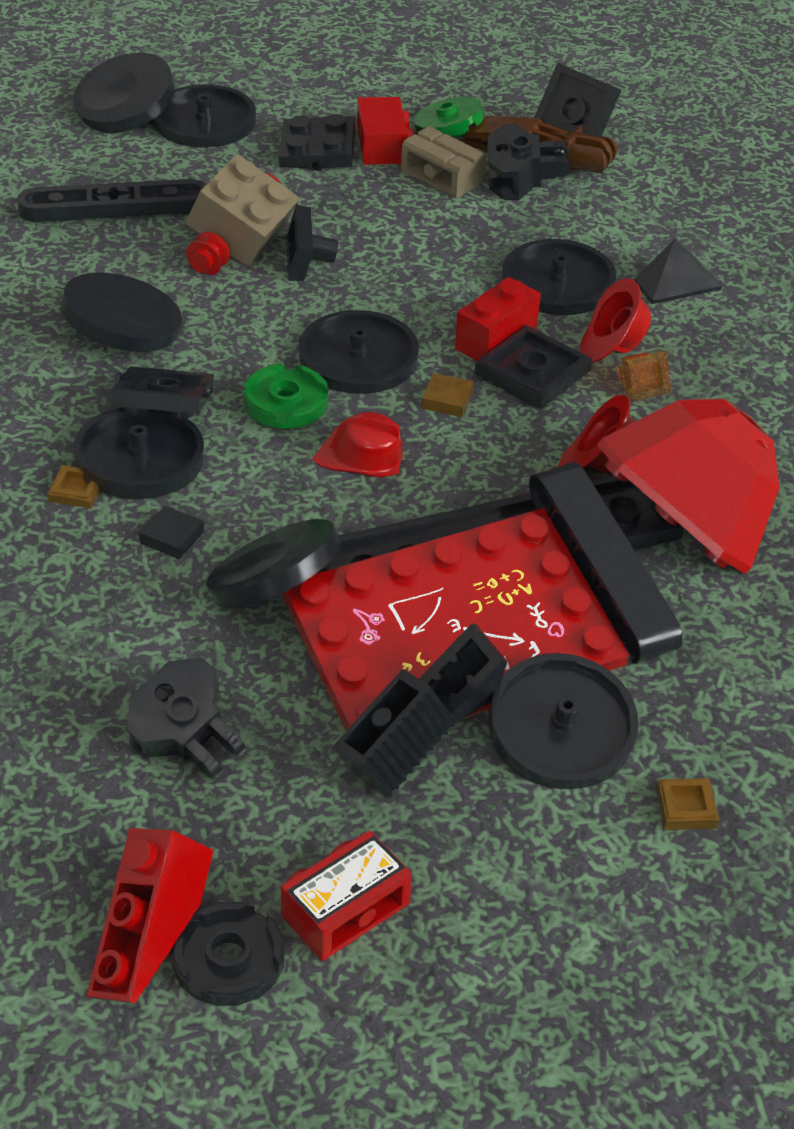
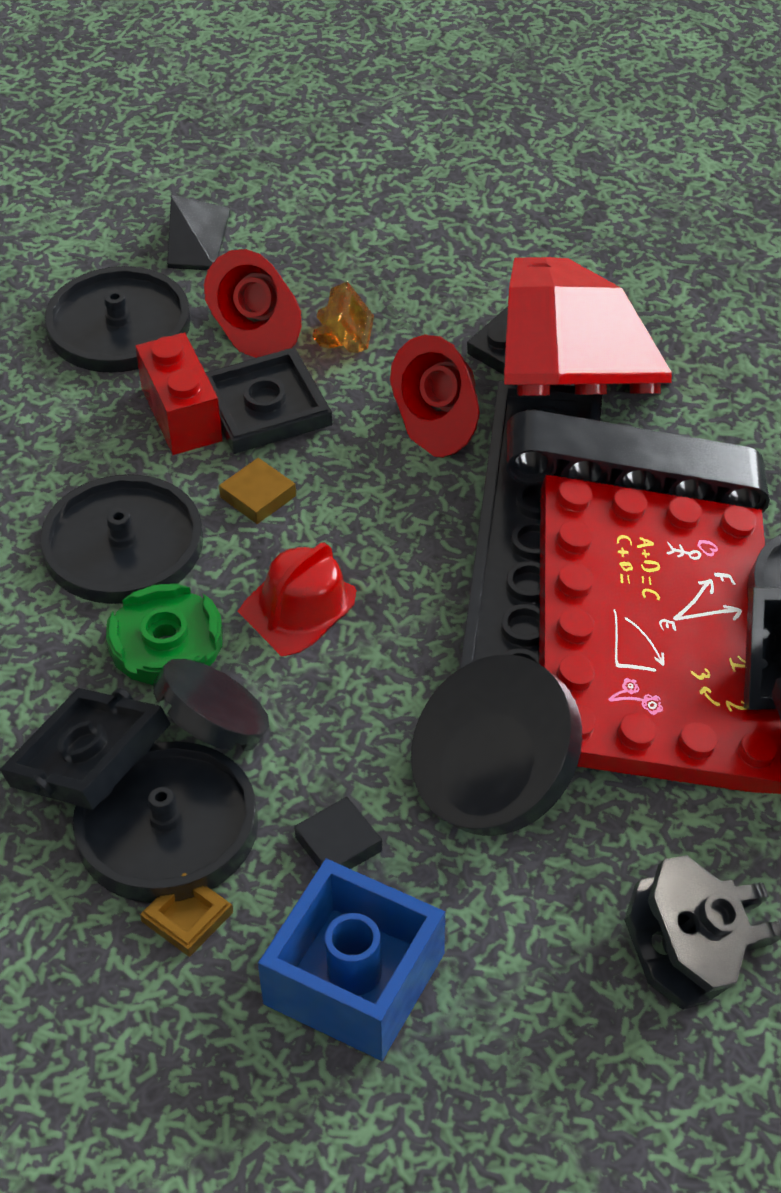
camera: 60 degrees left, 5 degrees up
(64, 556) = (352, 958): none -> blue brick
(228, 428) = (210, 705): none -> black tile

